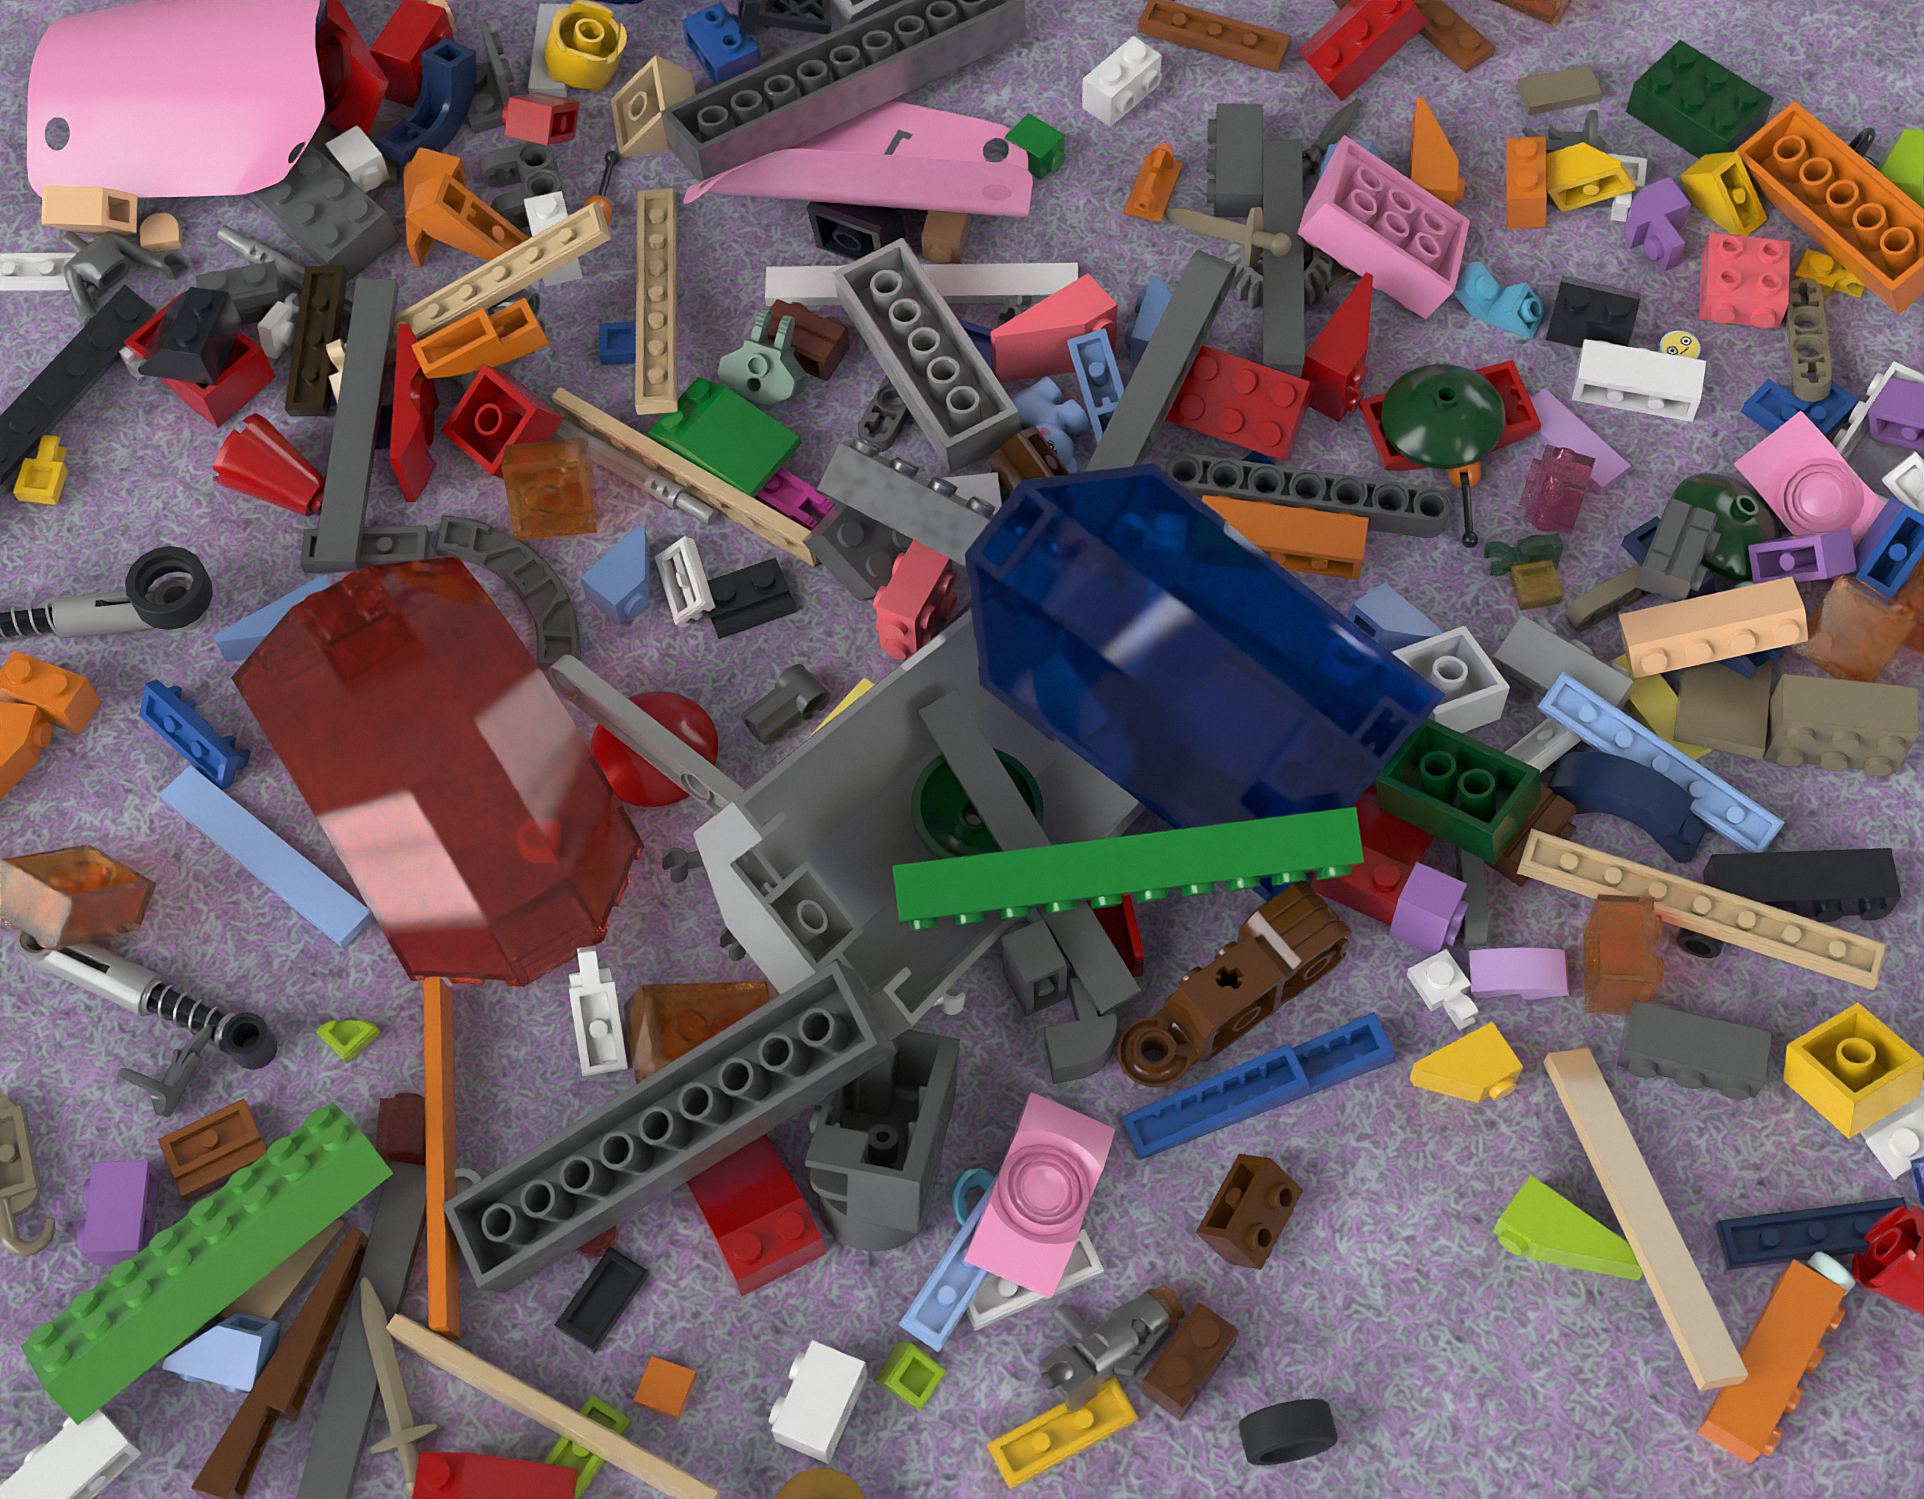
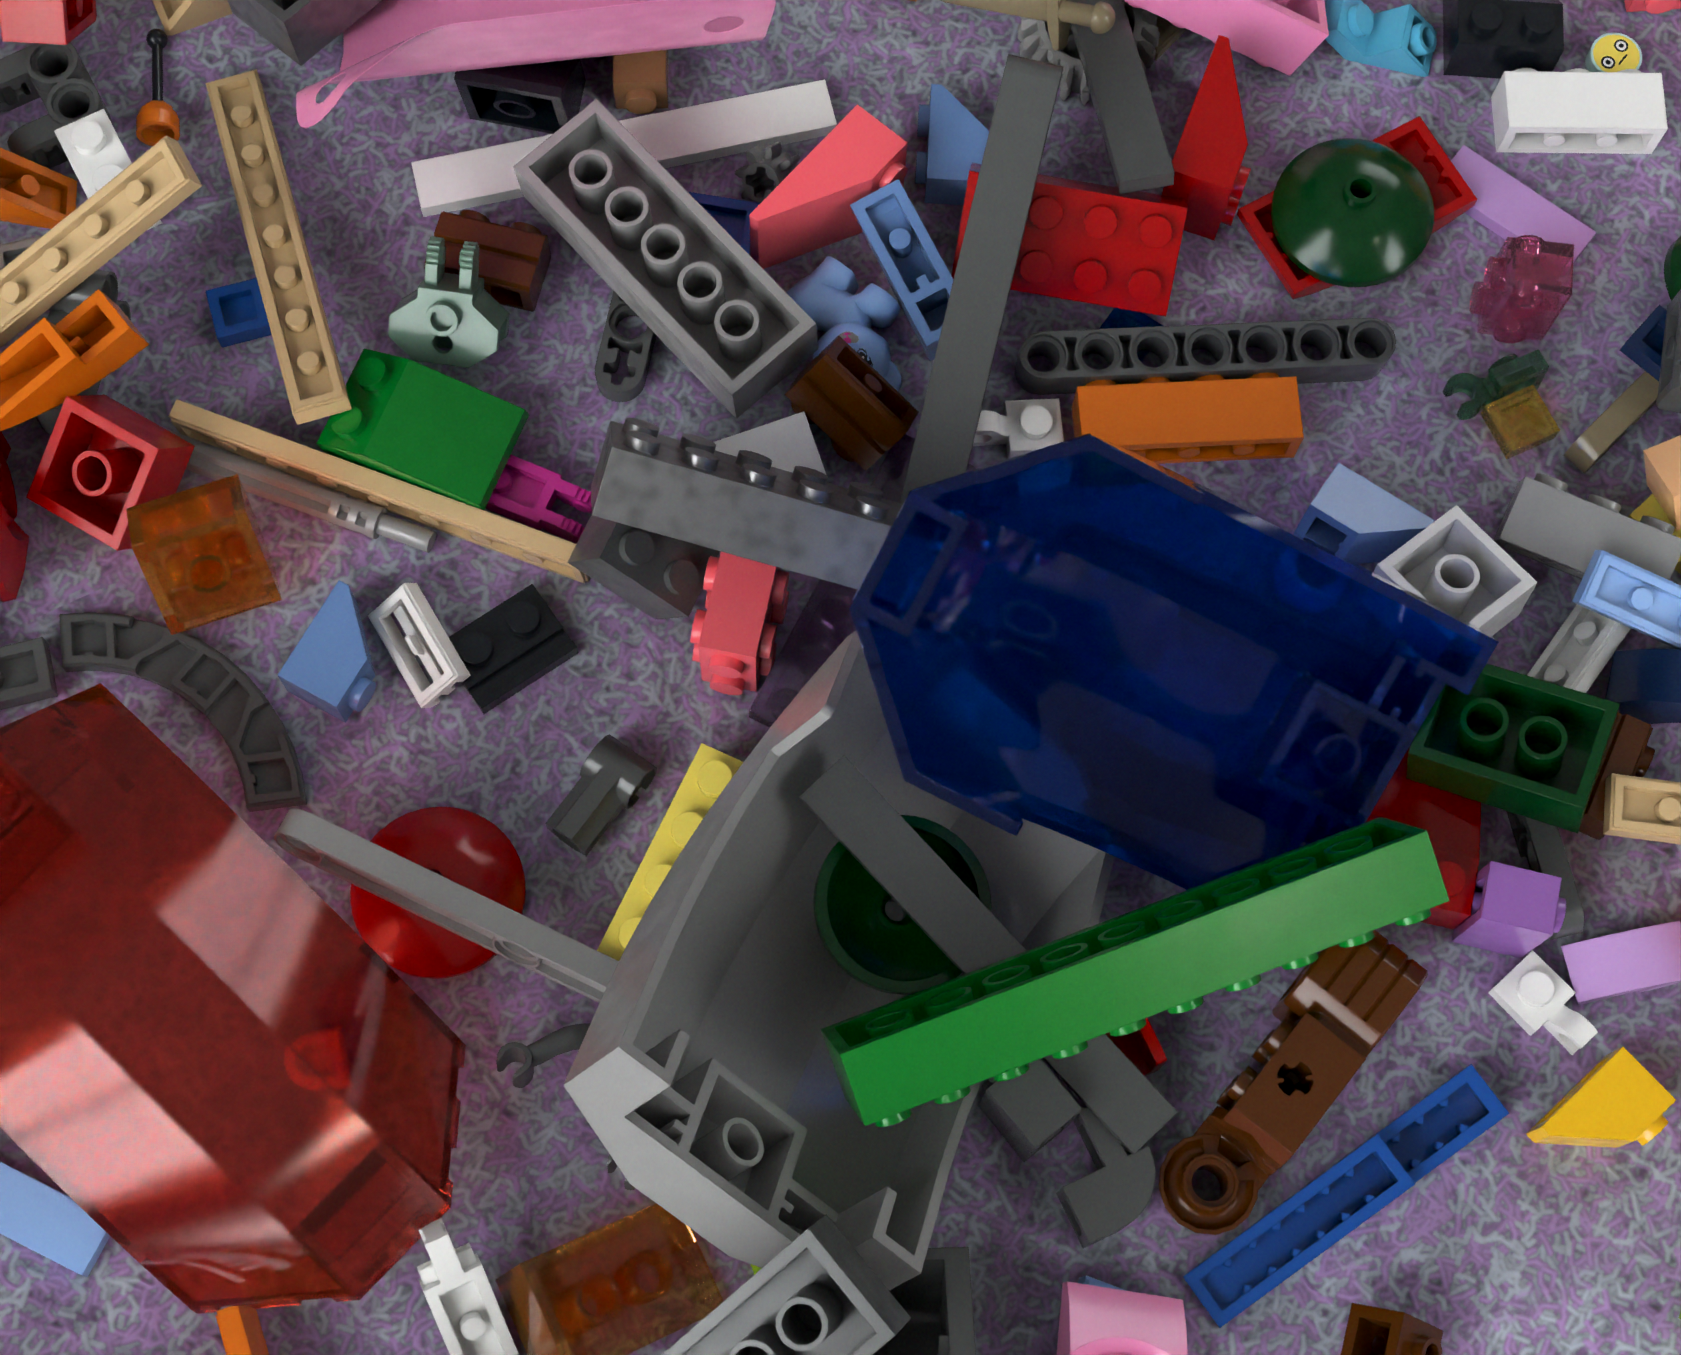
camera: 20 degrees left, 10 degrees up
(1464, 479) = (1395, 294): hinge -> none

